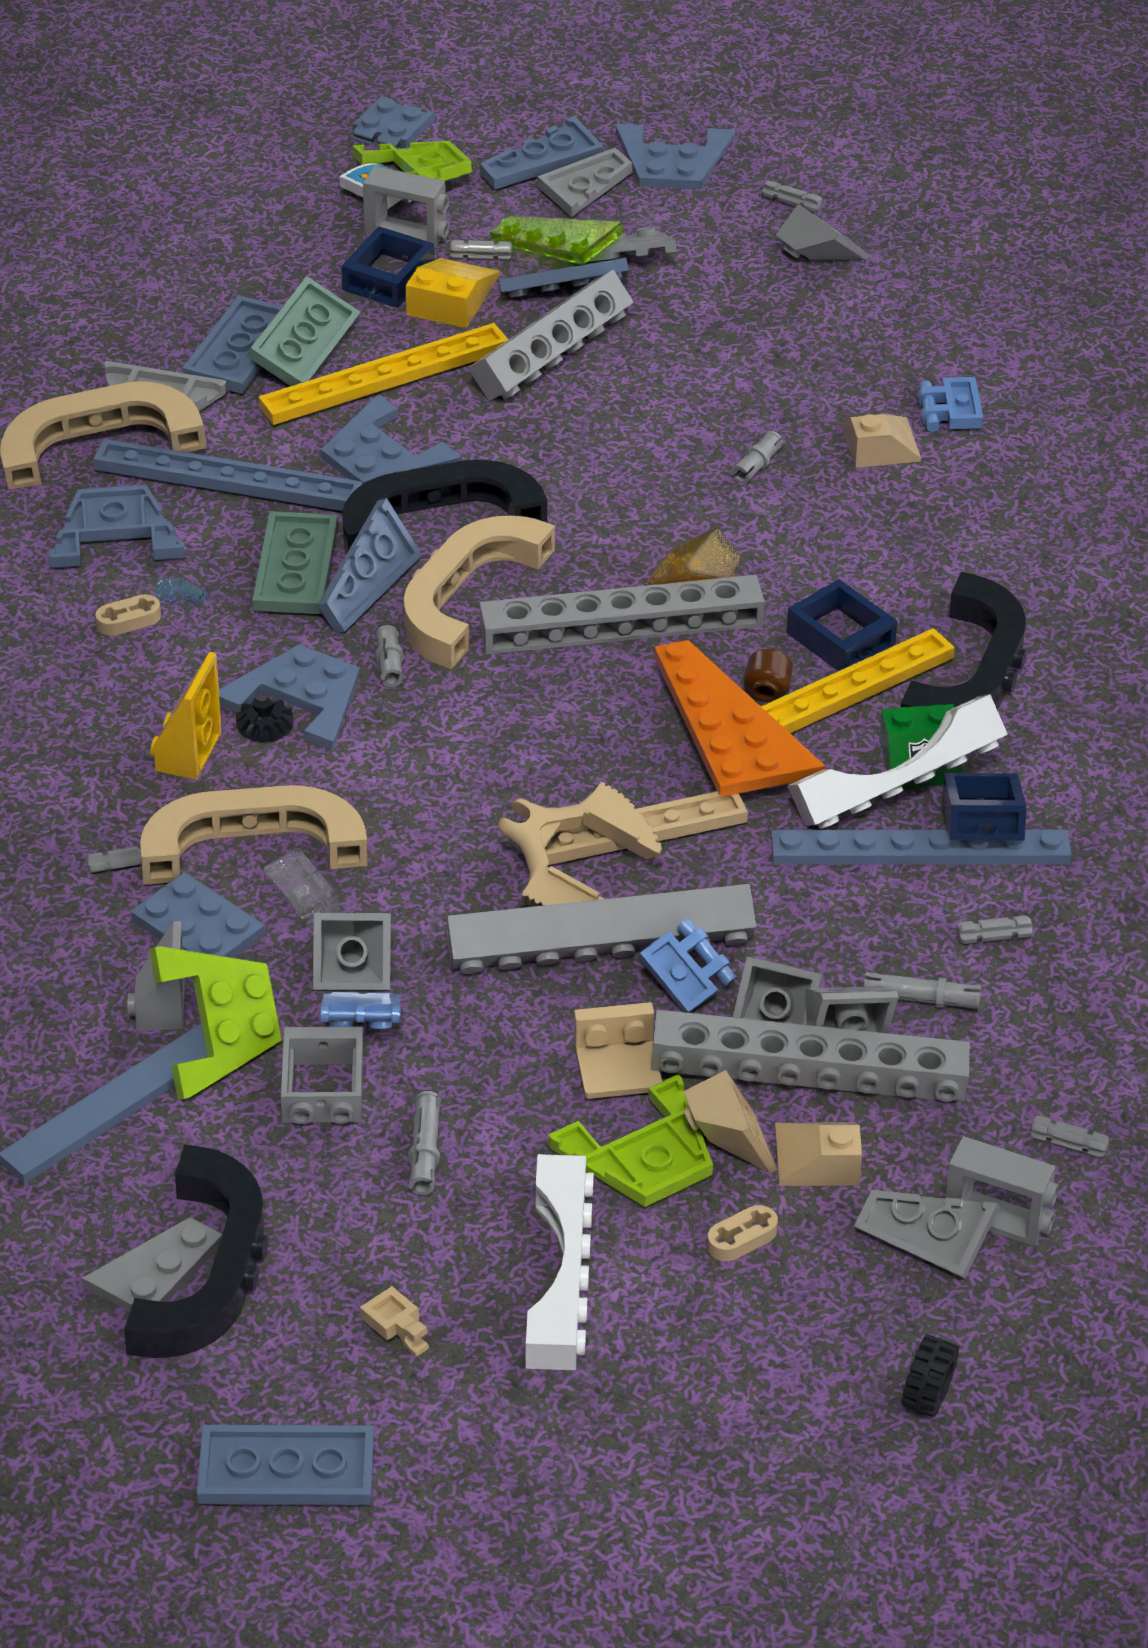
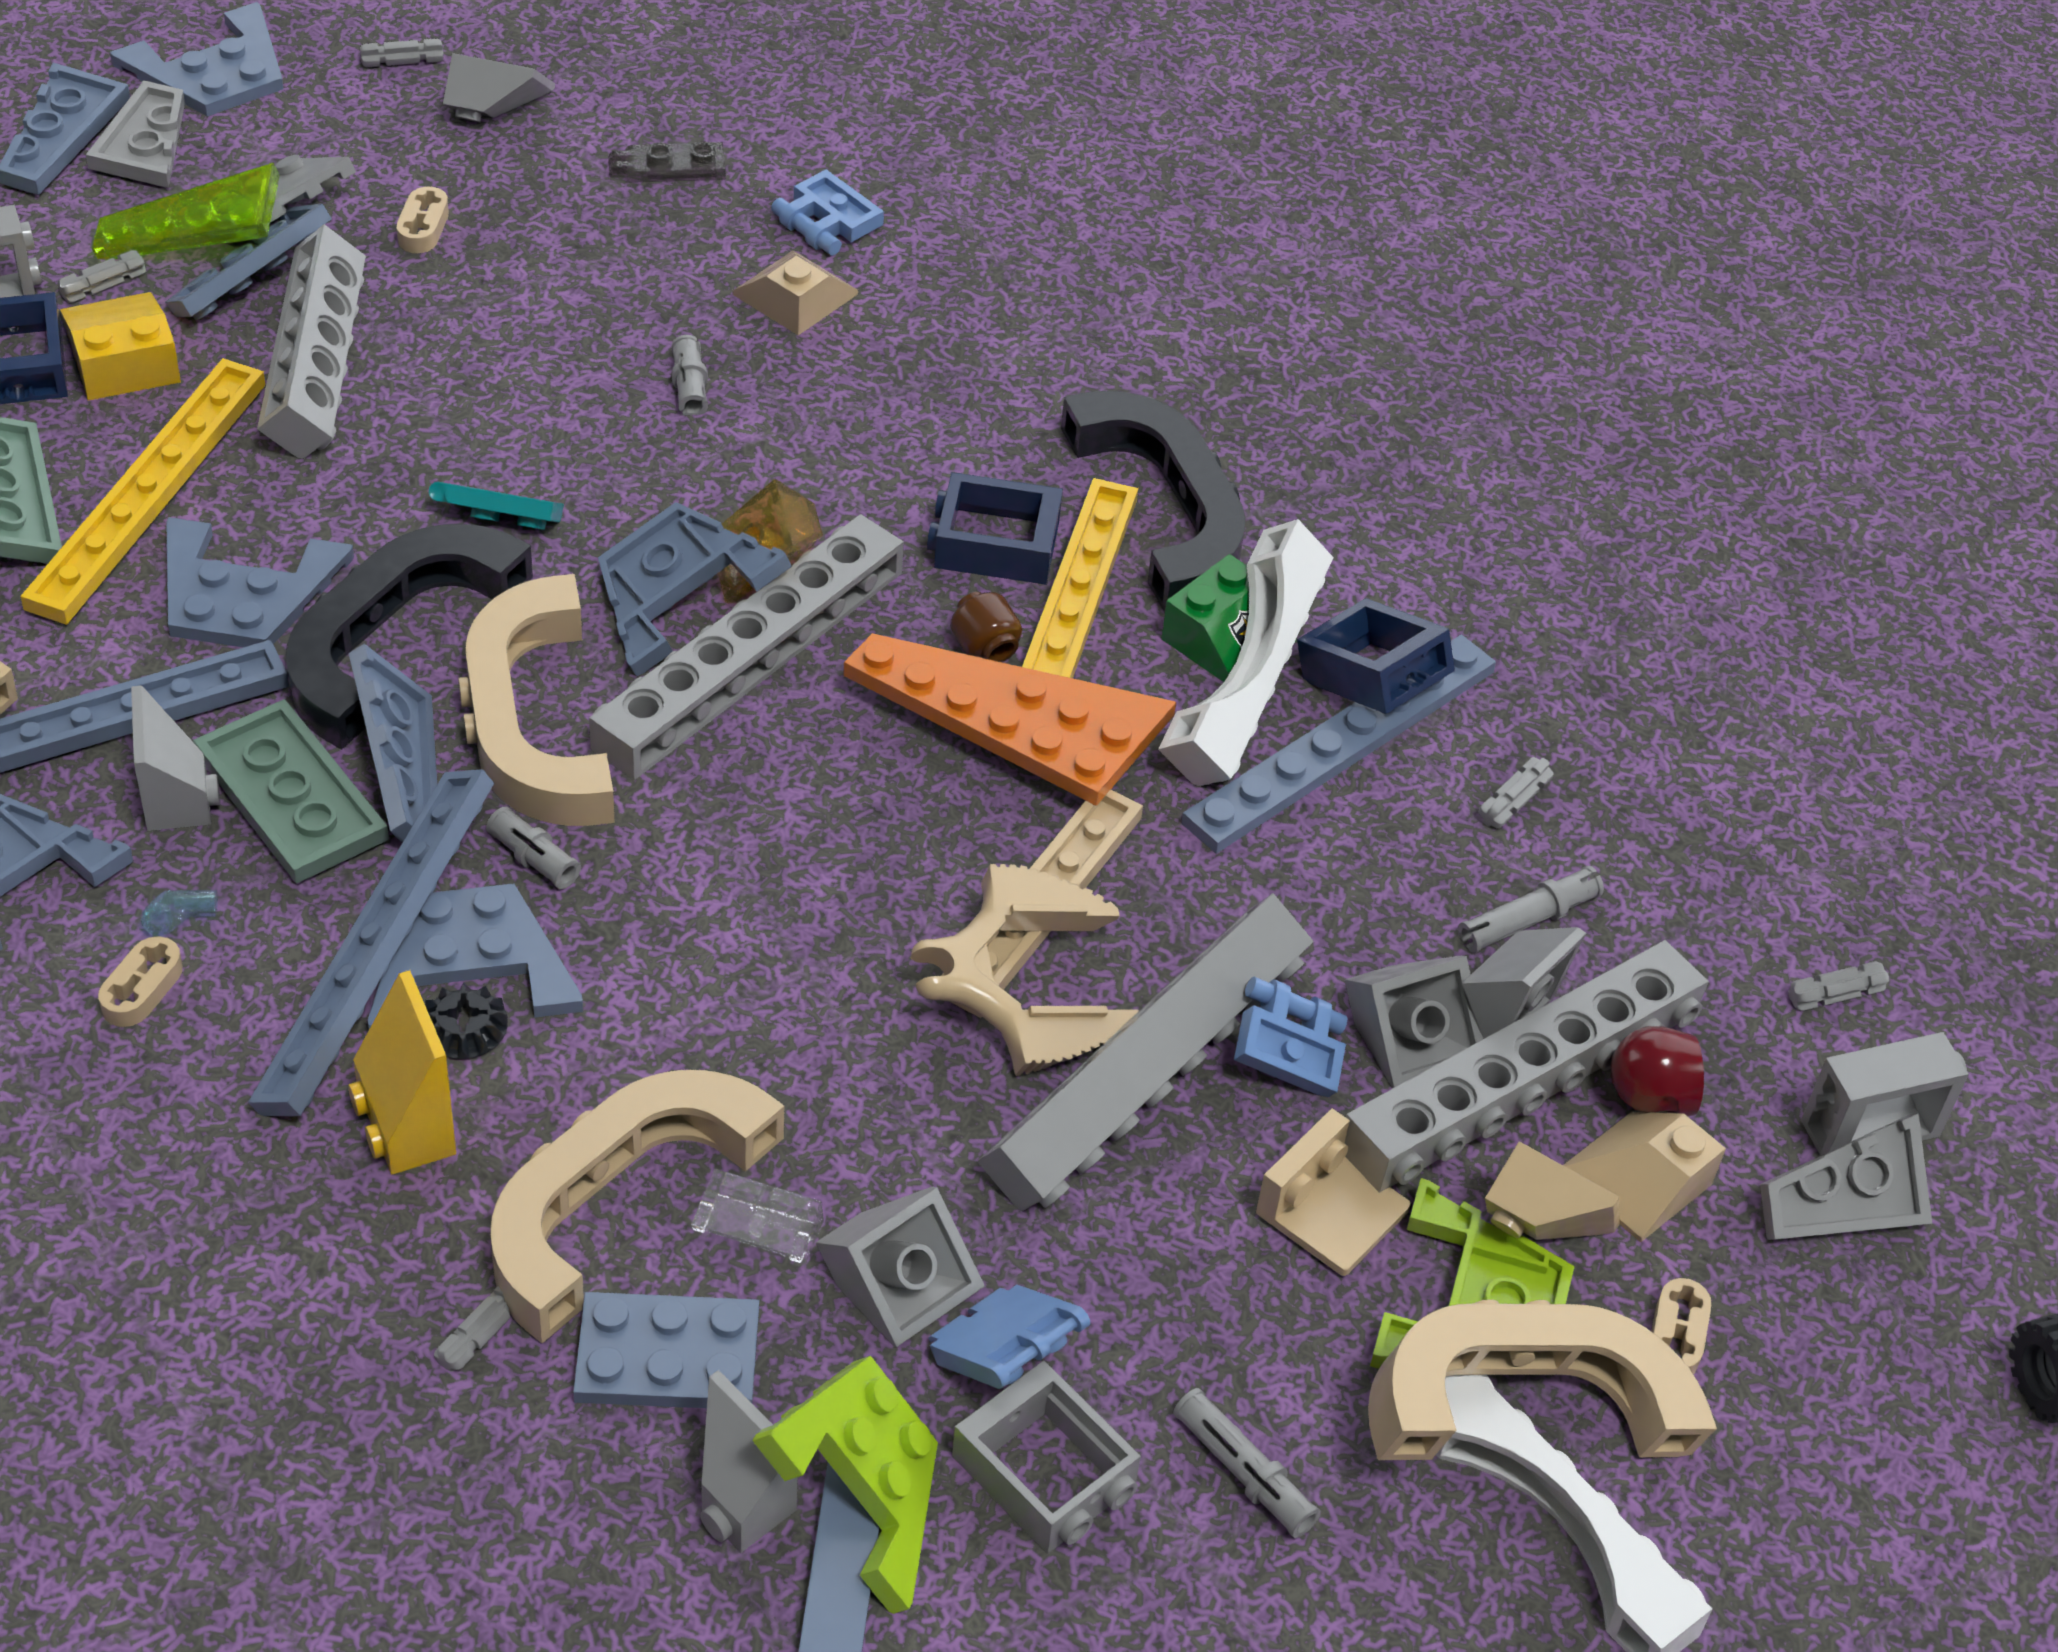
camera: 45 degrees left, 5 degrees up
(235, 514) = (169, 769): none -> light grey slope
(267, 648) = (370, 945): none -> sand blue plate
(562, 471) = (489, 504): none -> teal hinge
(612, 1161) = (1620, 1356): none -> tan arch
(616, 548) = (665, 564): none -> sand blue wing
(697, 298) = (431, 220): none -> tan beam
(872, 1098) = (1659, 1071): none -> dark red helmet
(888, 332) = (669, 162): none -> clear smoke hinge

